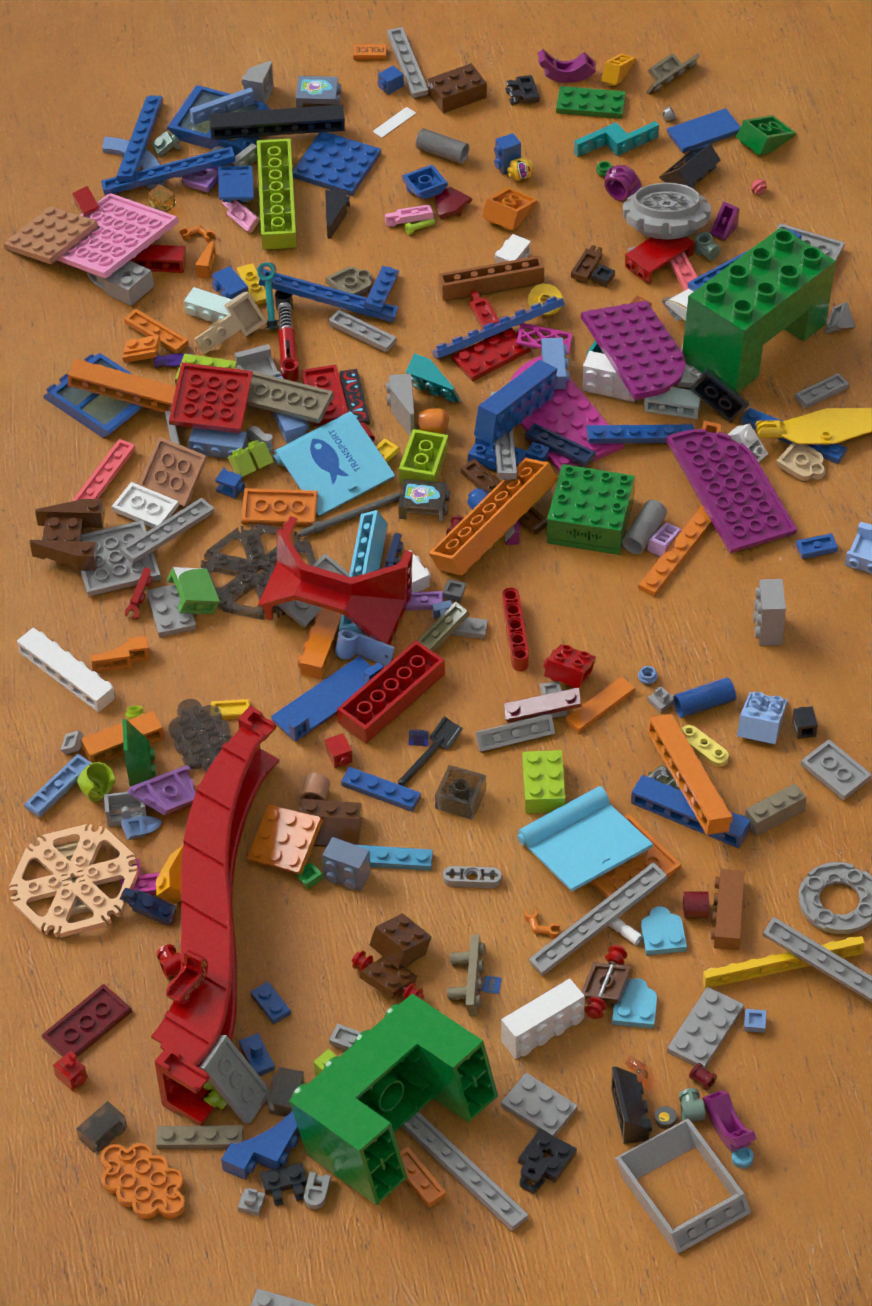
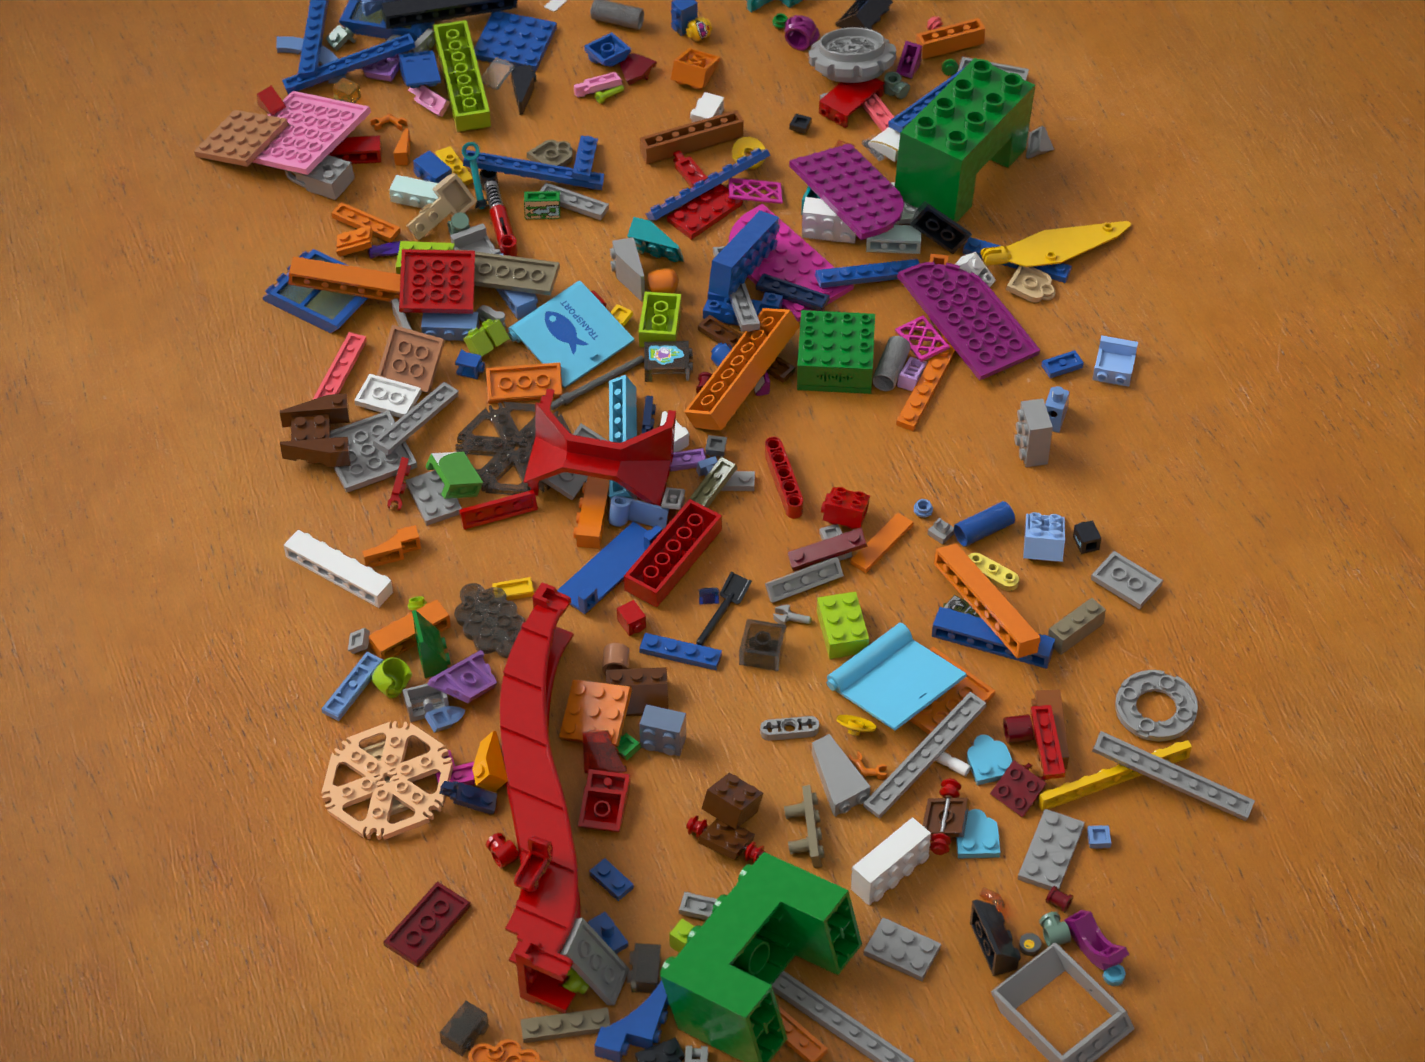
camera: 10 degrees left, 0 degrees up
(70, 1071) = (421, 974): red brick -> none
(230, 629) = (498, 509): none -> red plate
(245, 341) = (458, 223): none -> sand green piece
(278, 925) = (604, 800): none -> red slope
(282, 879) = (600, 752): none -> clear red slope
(311, 194) = (497, 73): none -> clear piece
(327, 378) = (549, 251): red plate -> none
(330, 331) = (542, 205): none -> panel
(354, 395) = (576, 264): black tile -> none
(400, 857) = (714, 717): dark azure plate -> none
(402, 638) = (673, 498): none -> light grey slope
(491, 984) = (830, 833): blue sticker -> none
(493, 766) = (789, 616): none -> light grey bar
(511, 932) = (838, 775): none -> light grey slope
(537, 881) = (855, 724): none -> yellow dish
(537, 1167) = (915, 1011): black plate -> none
(553, 354) = (770, 202): medium blue brick -> none
(587, 264) = (782, 114): reddish brown hinge -> none
(685, 962) = (1019, 788): none -> dark red plate
(688, 518) = (932, 350): none -> dark pink window
(720, 921) = (1047, 742): none -> red plate
(764, 231) = (950, 67): none -> green plate
(771, 203) = (951, 38): none -> orange brick
(802, 584) = (1057, 401): none -> medium blue torso
(821, 391) = (1035, 214): light grey tile -> none

